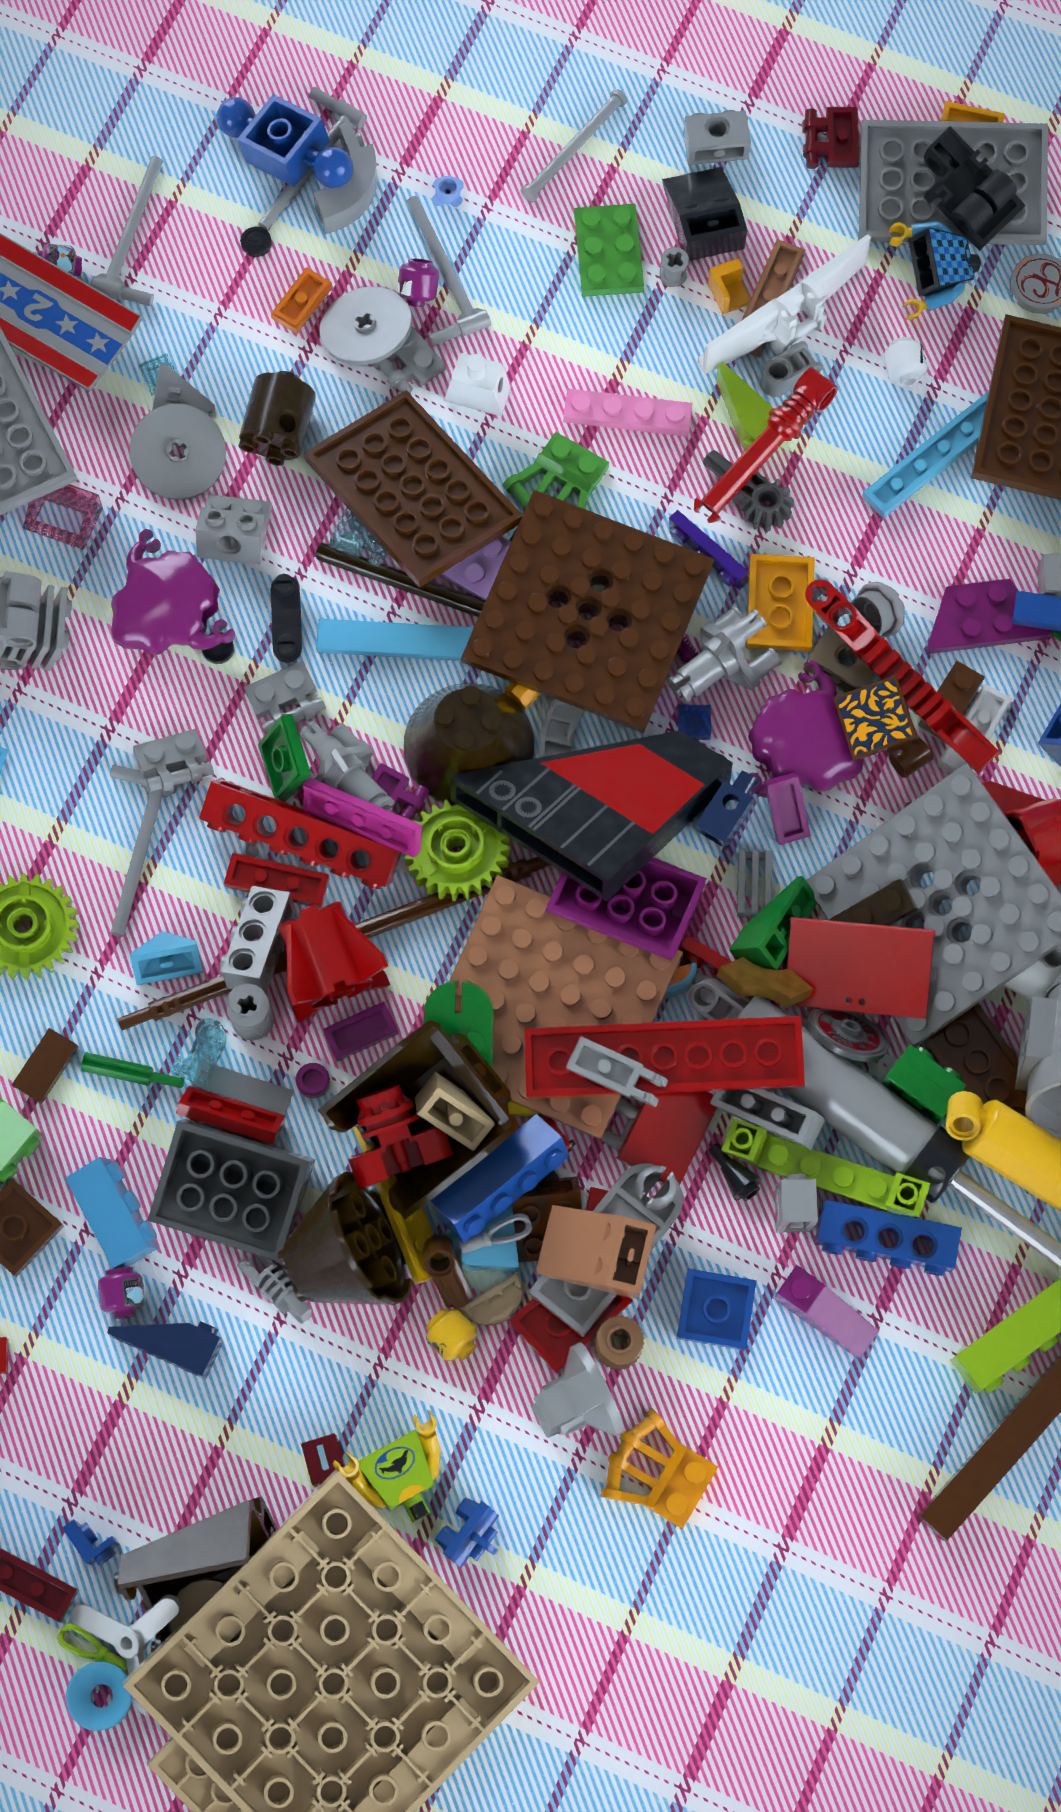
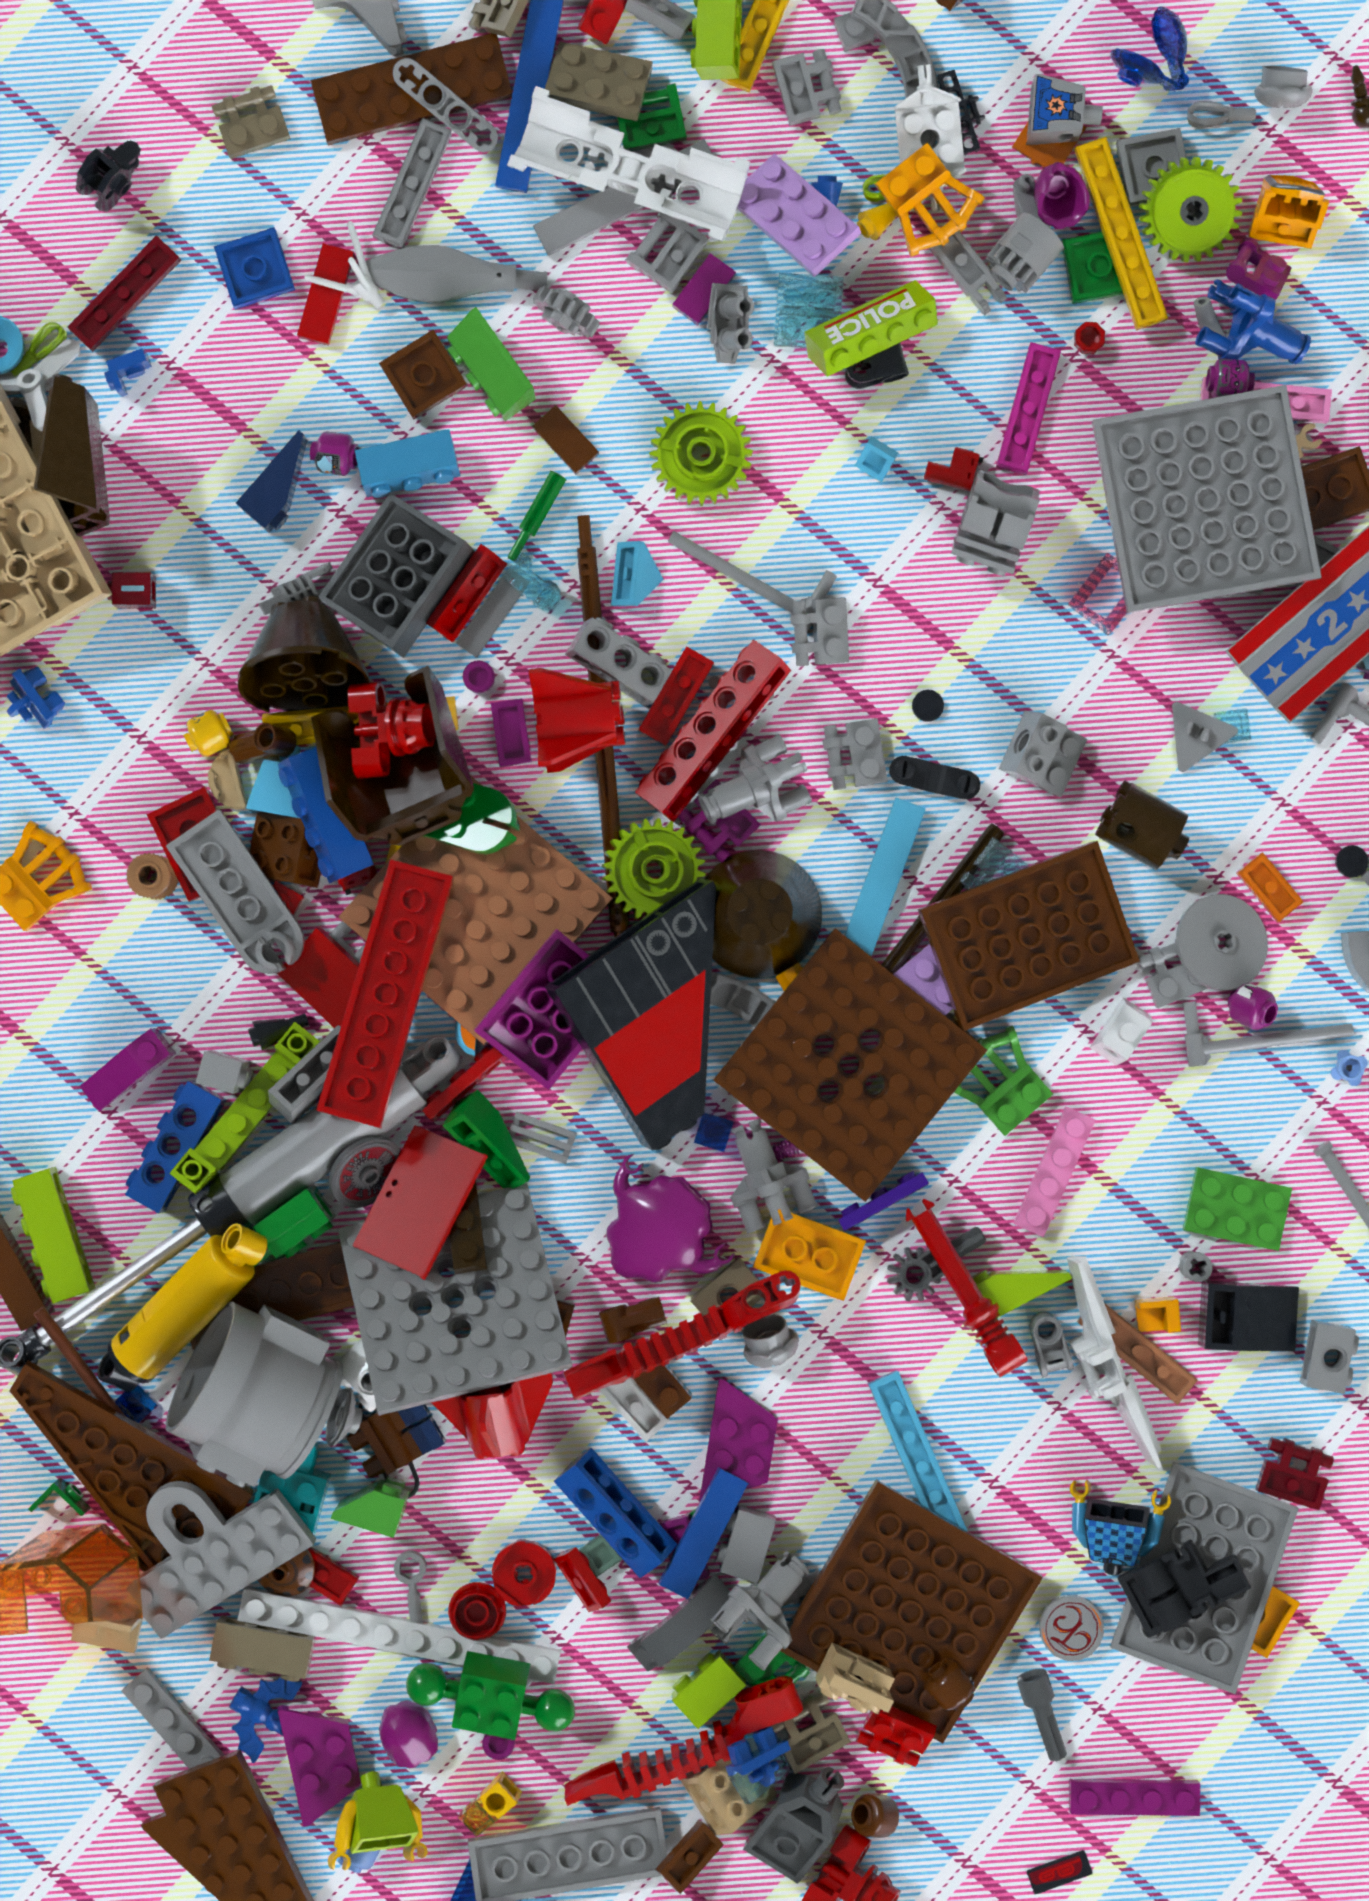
camera: 105 degrees right, 15 degrees up
(166, 602) = (981, 666): magenta piece -> none
(173, 476) = (1151, 698): light grey piece -> none
(250, 1012) = (550, 623): light grey piece -> none
(284, 758) = (788, 734): green tile -> none
(362, 817) = (702, 788): dark pink tile -> none
(398, 1471) = (103, 650): torso -> none
(453, 1111) = (392, 786): tan slope -> none
(486, 1239) = (269, 808): light grey piece -> none
(577, 1399) = (109, 821): light grey piece -> none
(596, 1250) = (230, 878): nougat slope -> none
(612, 1070) = (383, 942): light grey hinge -> none
(716, 1309) = (159, 973): blue plate -> none
(722, 823) = (601, 1123): dark blue torso -> none
(752, 980) = (425, 1121): pearl gold tile -> none
(787, 808) = (598, 1189): magenta tile -> none
(875, 718) = (651, 1298): tile -> none
(905, 361) = (1024, 1461): white head -> none

